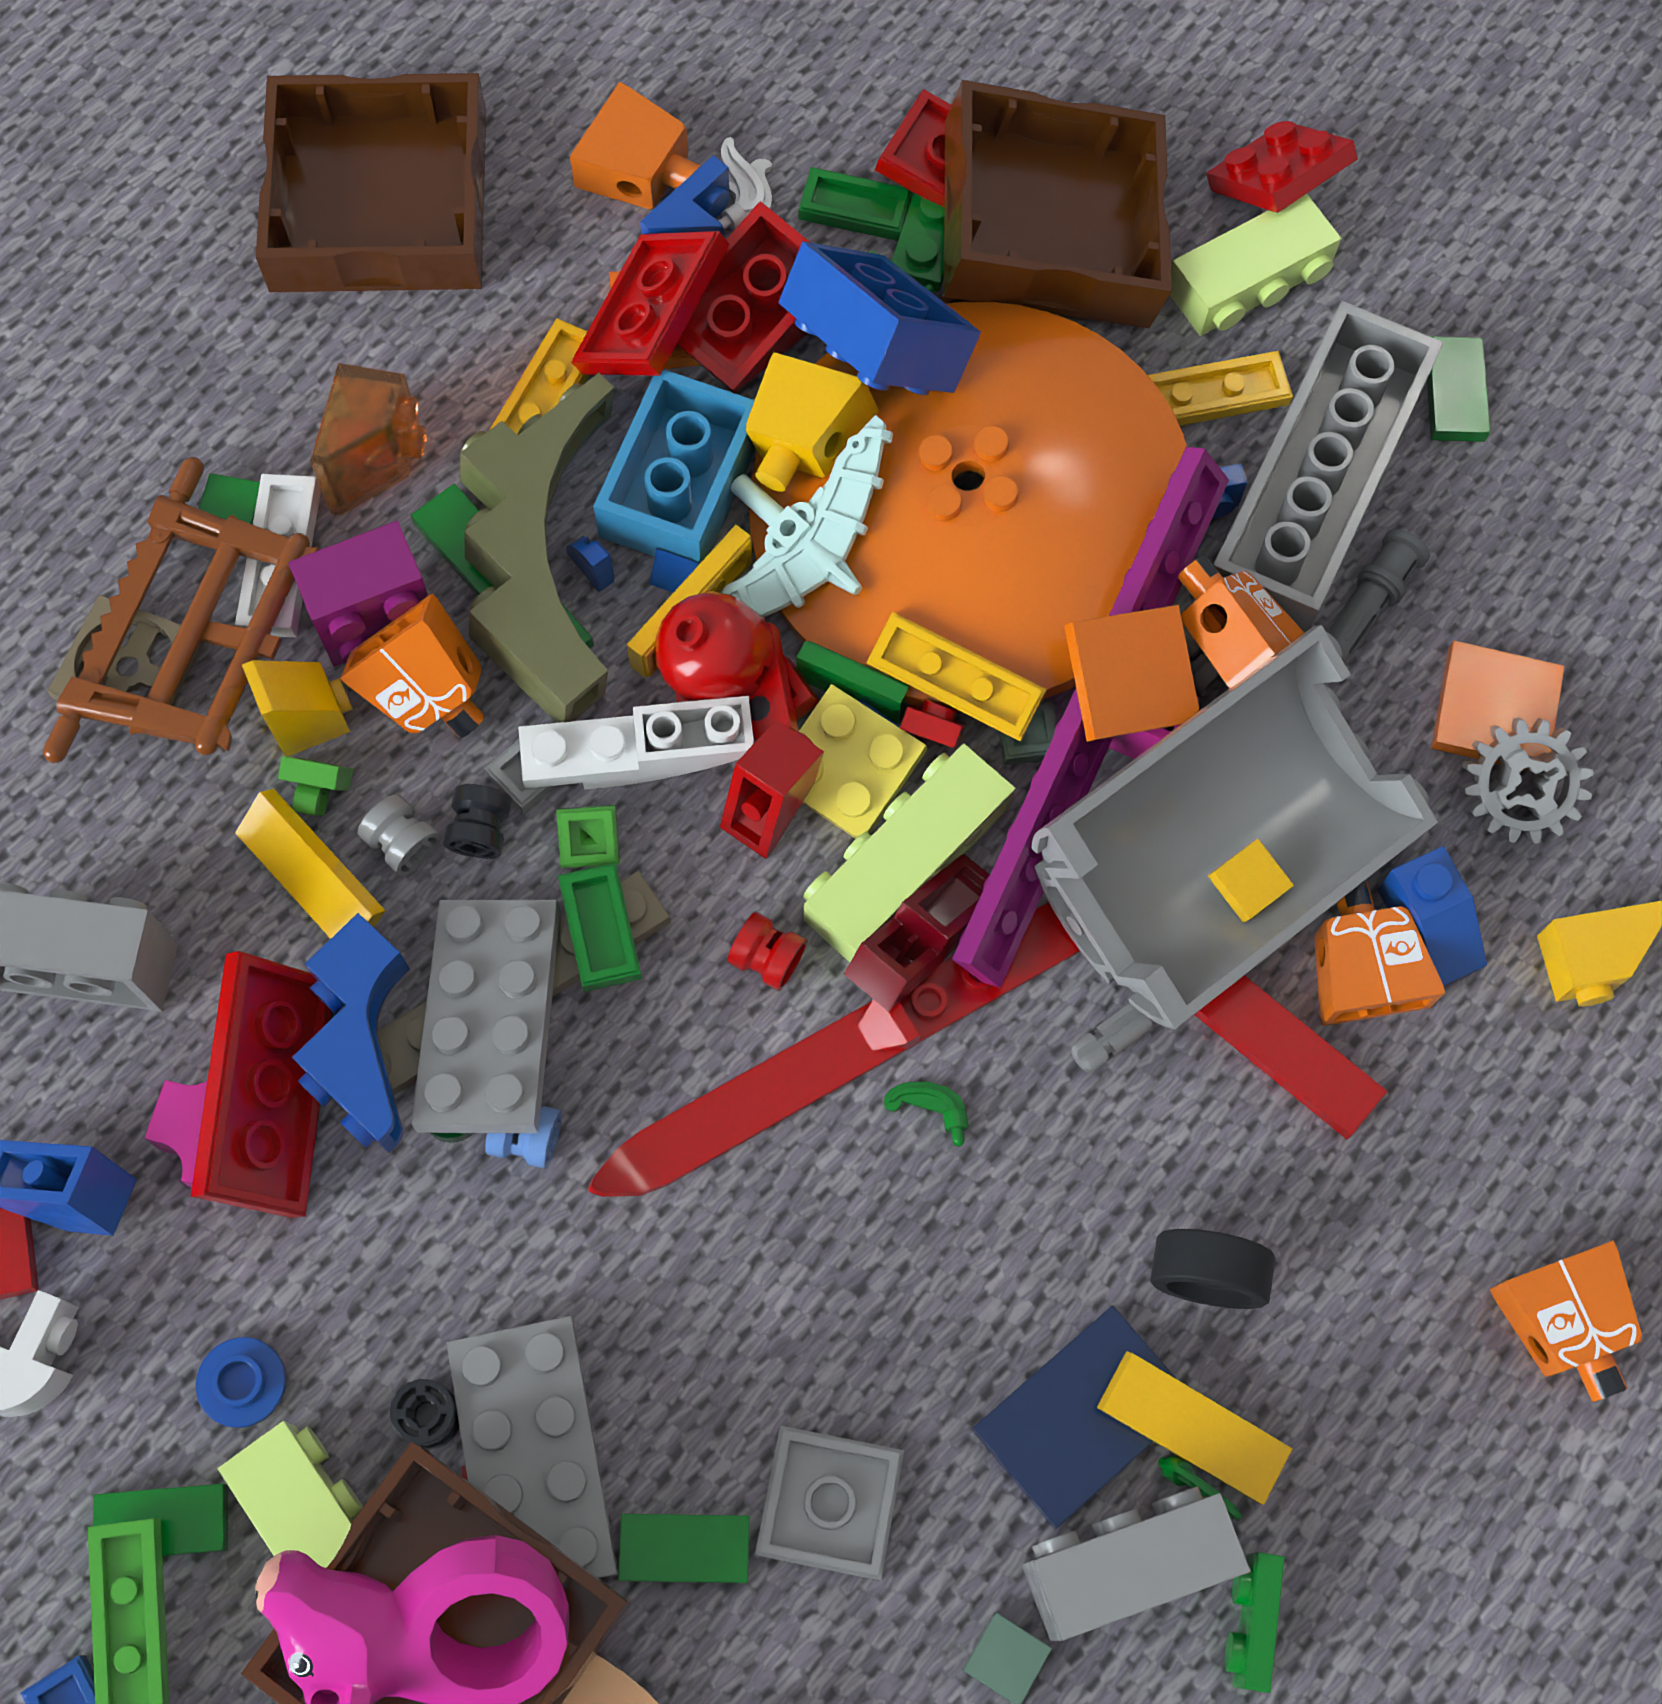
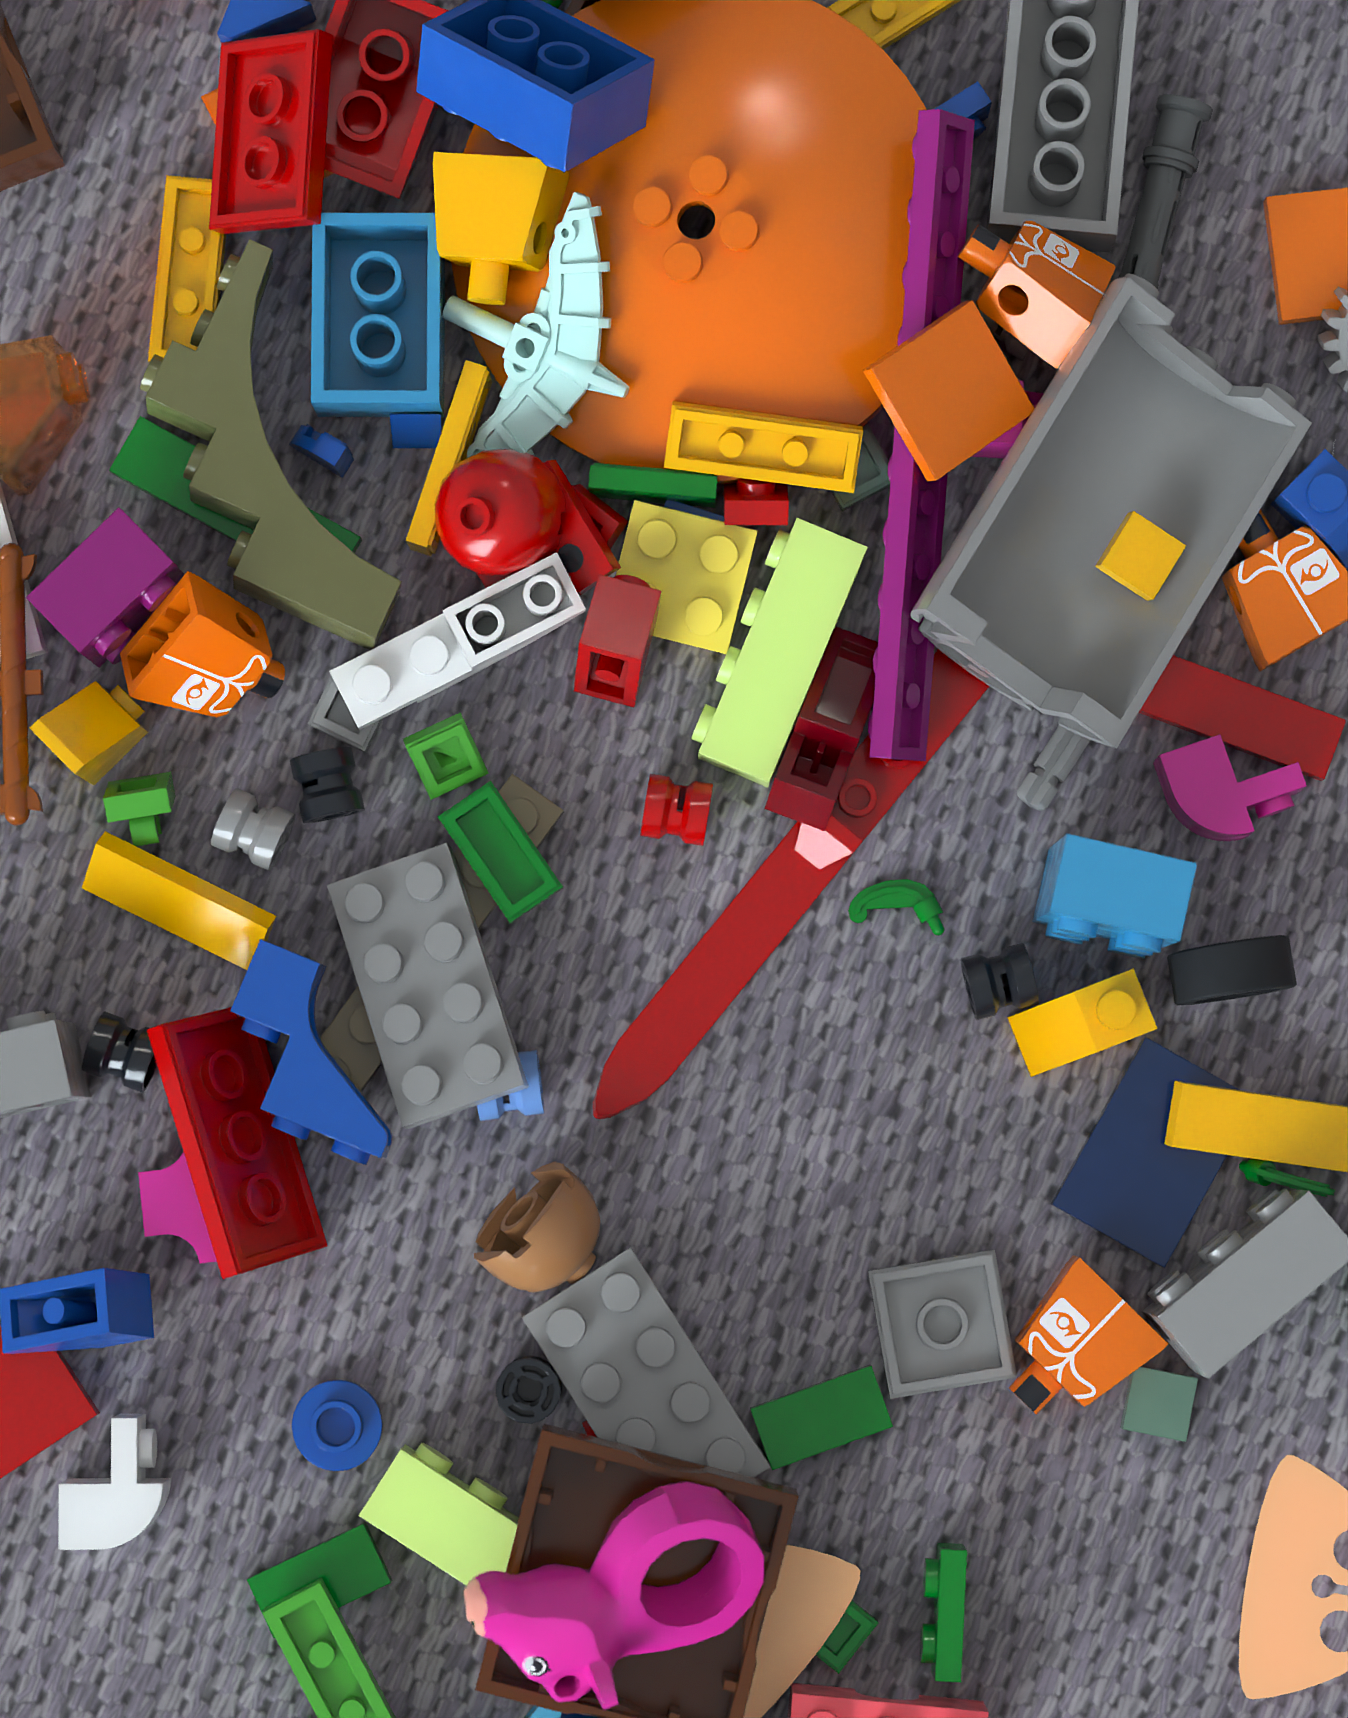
camera: 15 degrees left, 15 degrees up
(198, 973) = (120, 1052): none -> black wheel
(498, 1274) = (542, 1235): none -> medium nougat cylinder
(954, 1567) = (1081, 1340): none -> orange torso
(983, 1204) = (985, 983): none -> black wheel
(1060, 1269) = (1082, 1022): none -> yellow slope
(1128, 1153) = (1113, 895): none -> dark azure brick
(1243, 1115) = (1210, 801): none -> dark pink brick

